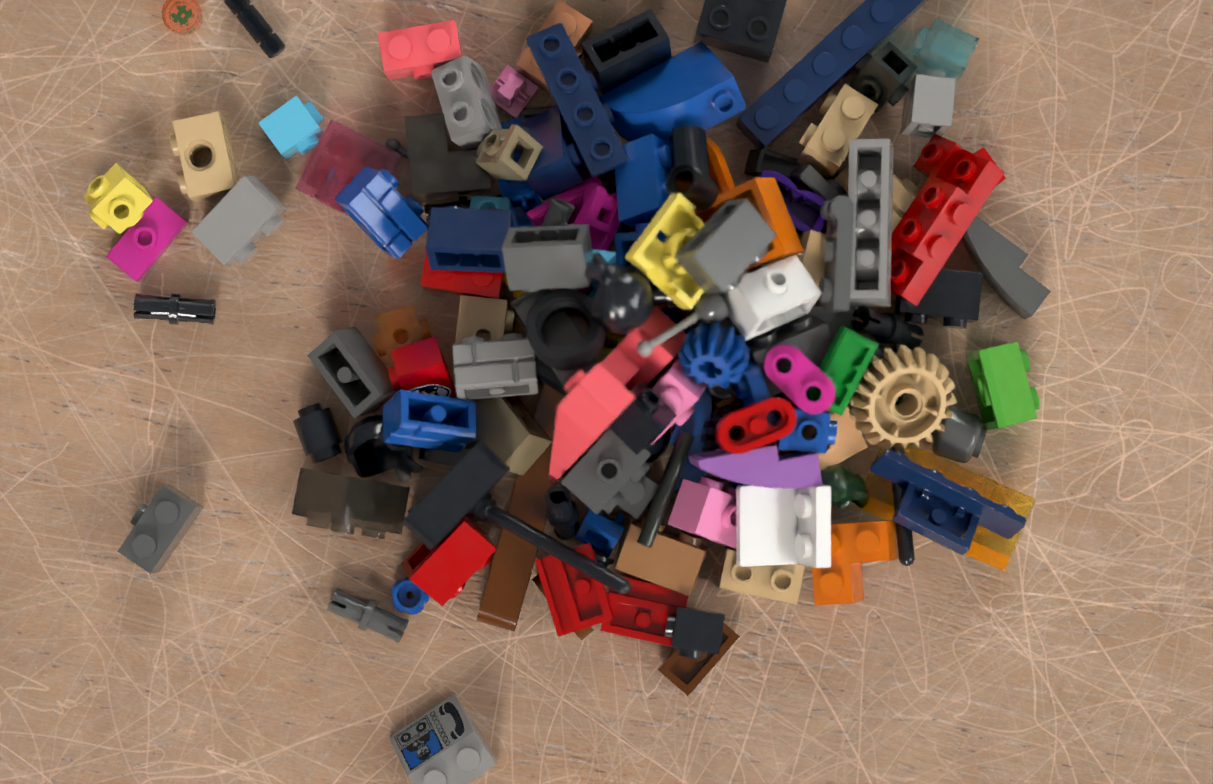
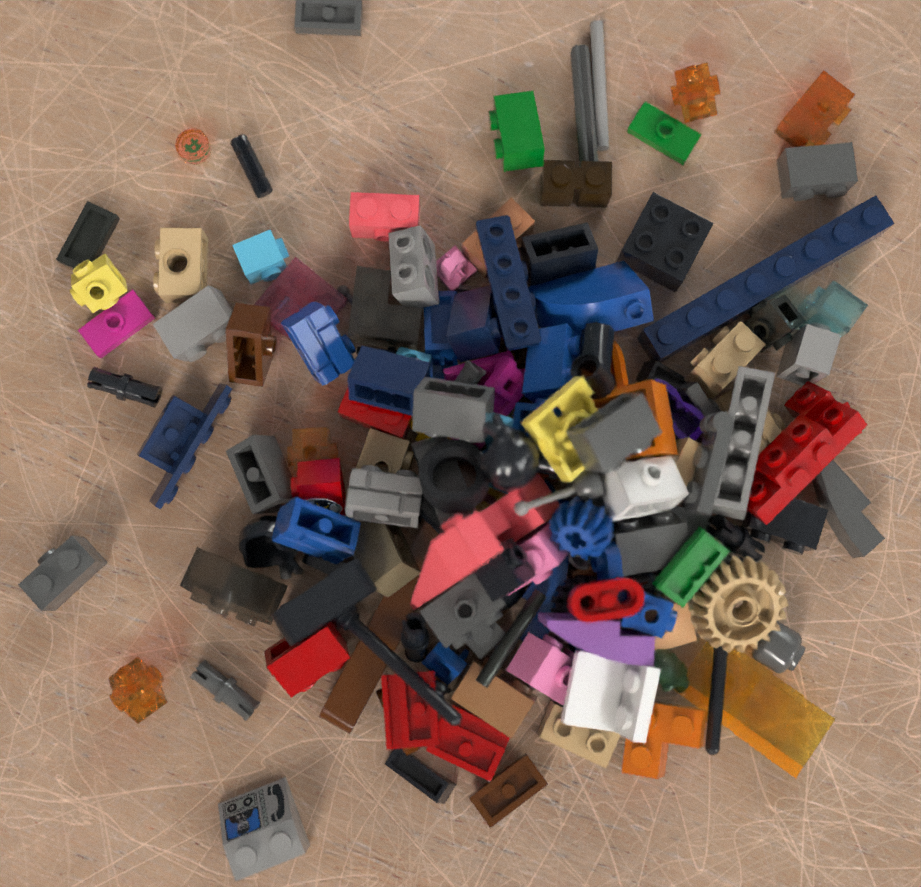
camera: 15 degrees right, 5 degrees down
(89, 146) = (88, 235): none -> pearl dark grey tile
(249, 351) = (177, 438): none -> dark blue bracket
(274, 635) = (137, 689): none -> clear orange brick
(305, 231) = (249, 344): none -> reddish brown brick
(318, 433) = (220, 520): black brick -> none
(400, 600) = (259, 687): blue plate -> none
(498, 149) = (431, 310): dark tan brick -> none
(600, 658) = (421, 775): none -> black piece
(694, 631) = (509, 771): black brick -> none
(799, 379) = (654, 566): dark pink plate -> none
(942, 507) = (753, 709): dark blue bracket -> none
(1003, 385) = (825, 612): bright green slope -> none

